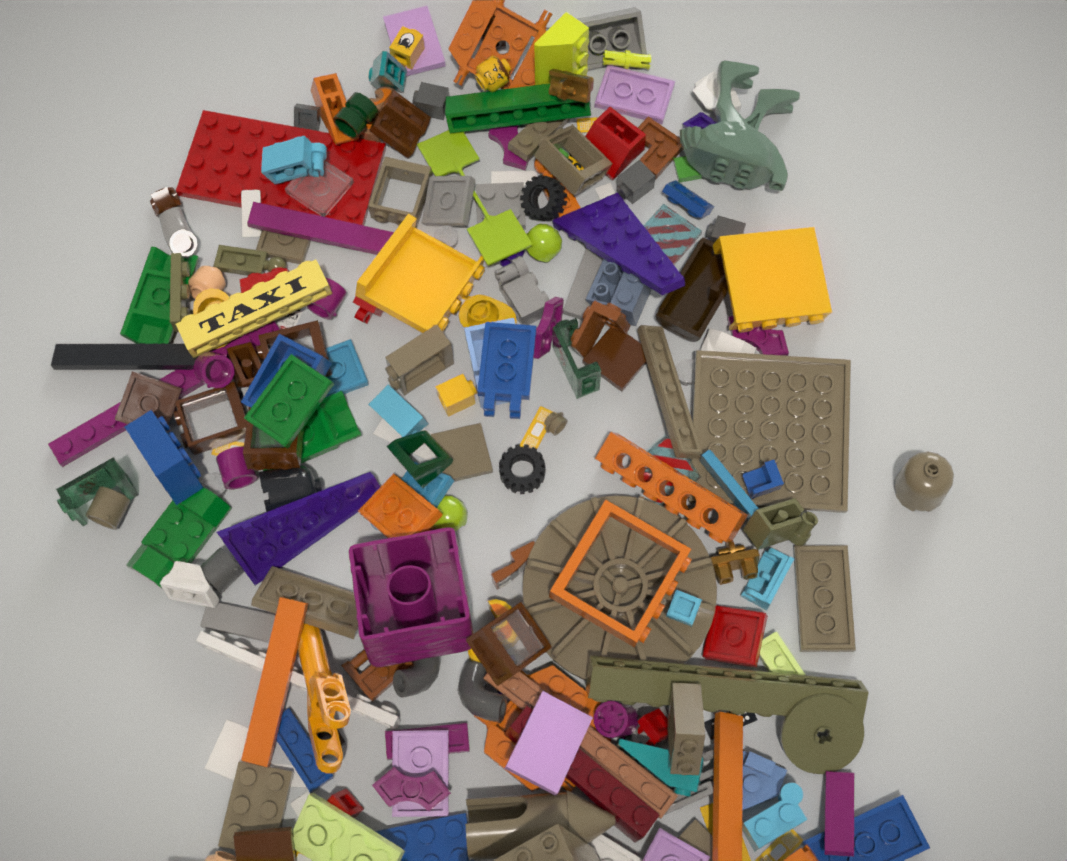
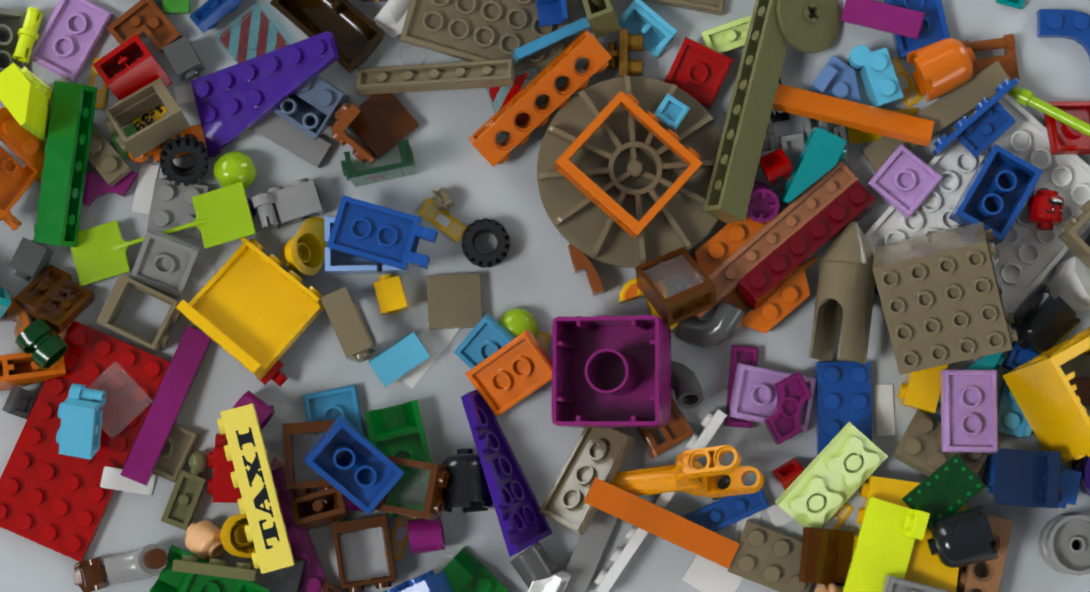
camera: 80 degrees left, 15 degrees up
(214, 369) = (315, 542): magenta piece -> none
(289, 401) = (382, 462): green tile -> none
(426, 471) = (477, 339): dark green tile -> none
(492, 73) = (23, 183): yellow head -> none
(544, 333) = (332, 183): magenta tile -> none
(548, 743) = (780, 266): lavender tile -> none
(570, 85) = (67, 100): pearl gold hips -> none
(686, 729) = (793, 135): dark tan window -> none

